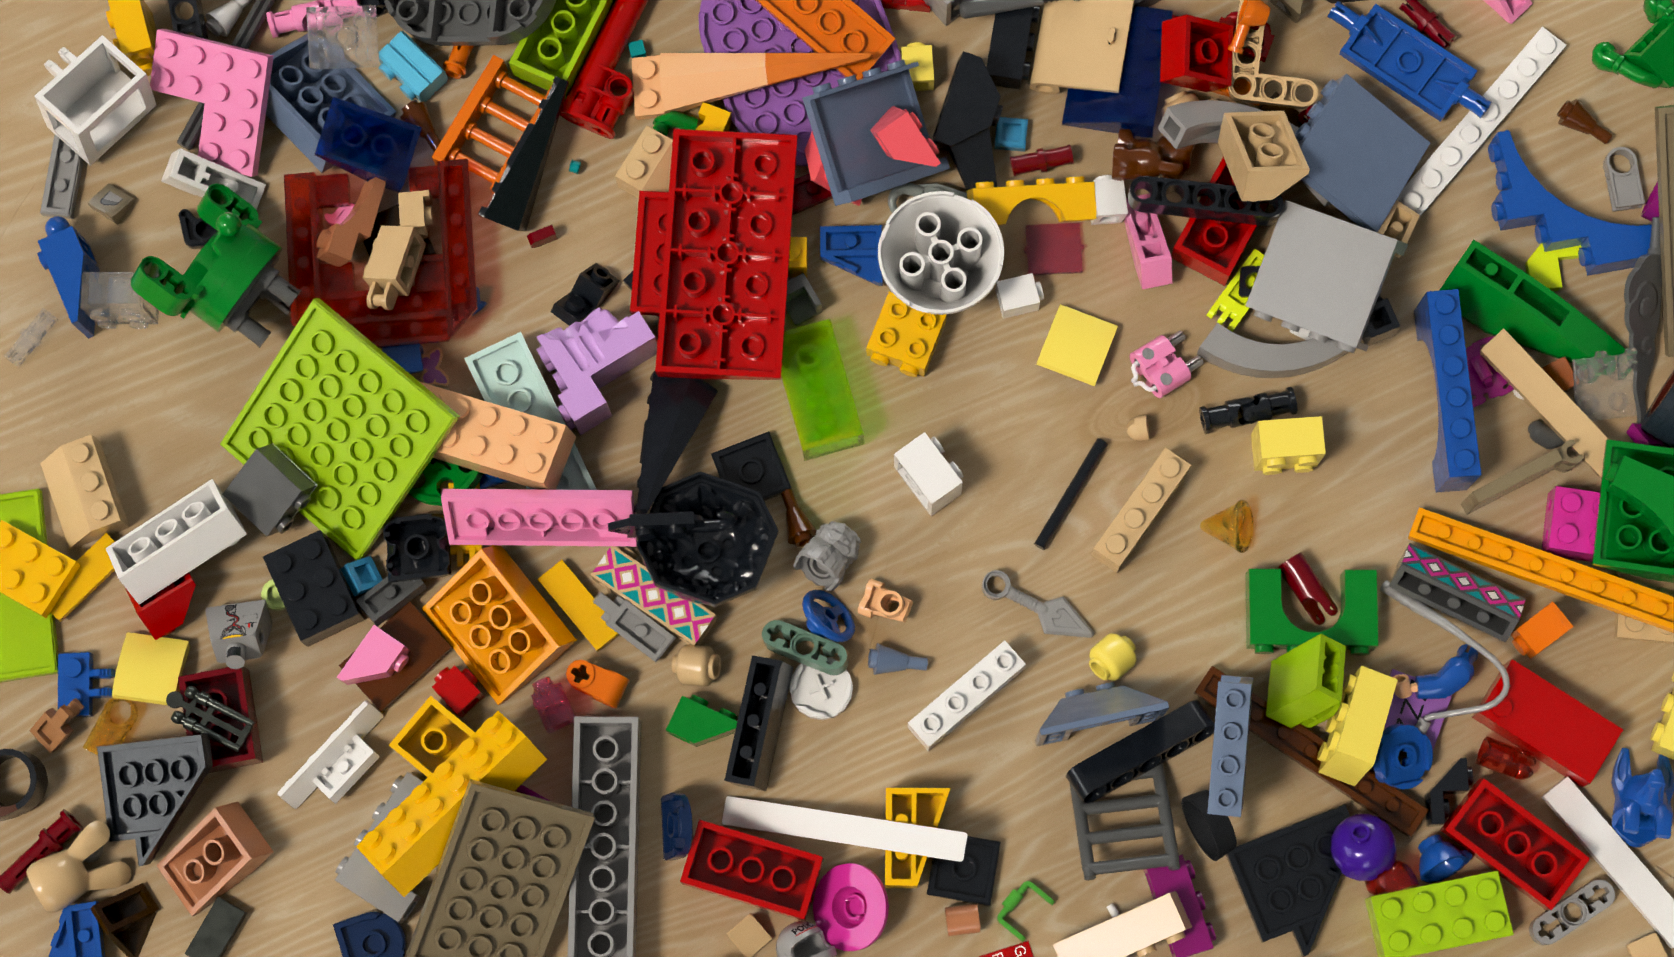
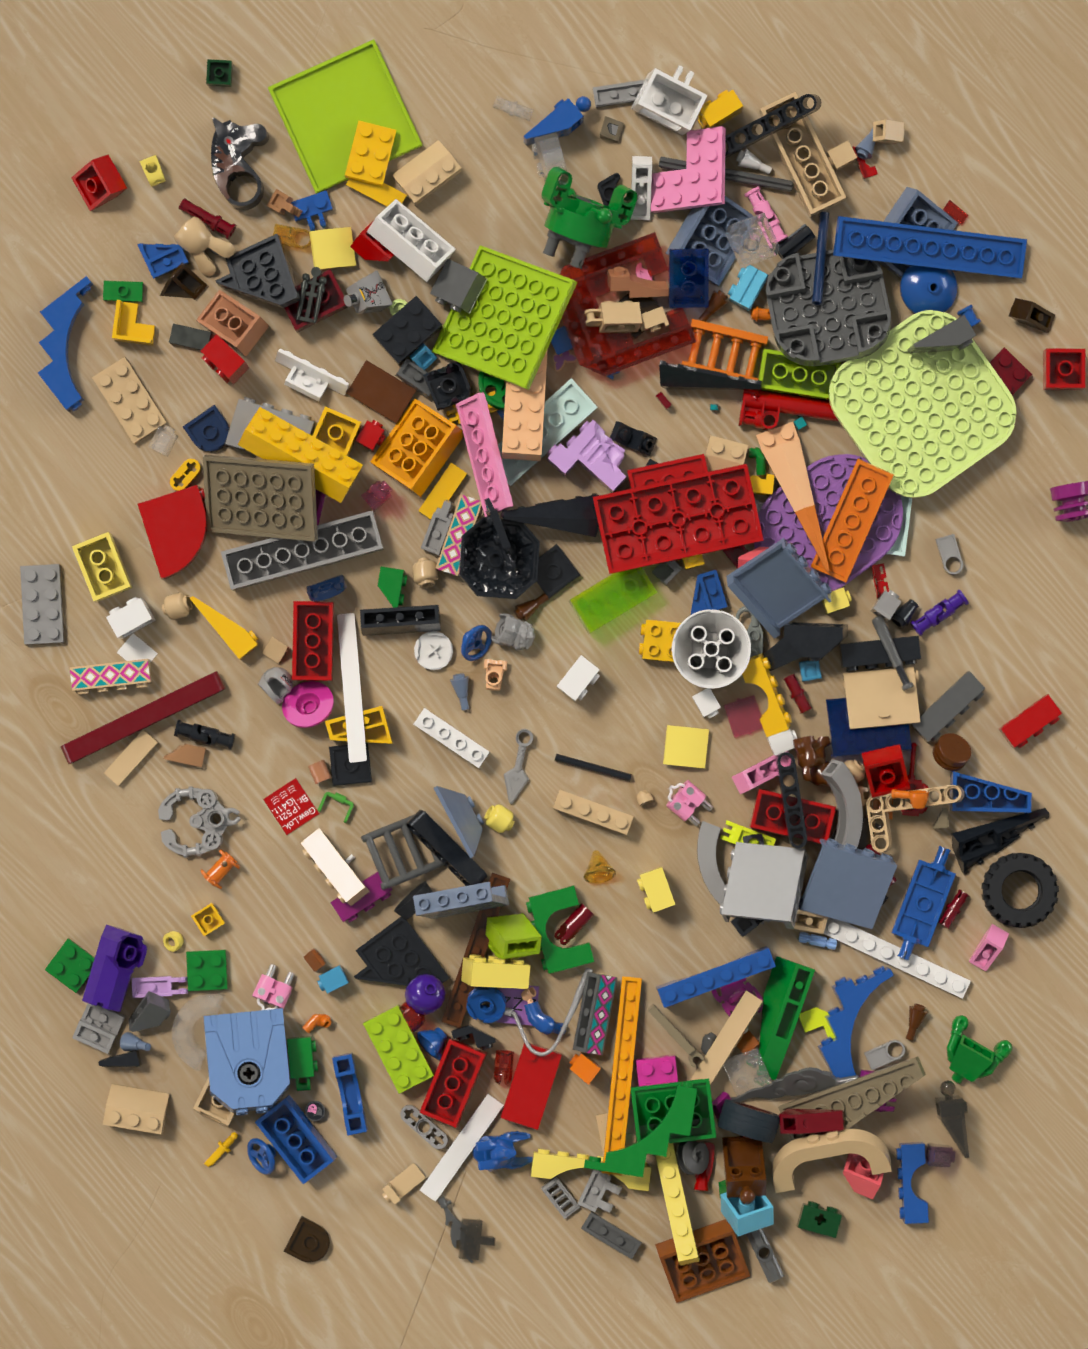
camera: 70 degrees right, 10 degrees up
(264, 883) = (221, 356): none -> red brick
(375, 658) = (376, 381): bright pink slope -> none
(602, 684) = (397, 520): orange piece -> none
(781, 647) = (461, 621): sand green beam -> none
(901, 138) = (779, 606): coral slope -> none
(1252, 409) = (675, 864): black piece -> none
(1261, 153) = (826, 826): tan slope -> none
(1425, 231) = (817, 940): none -> light blue axle

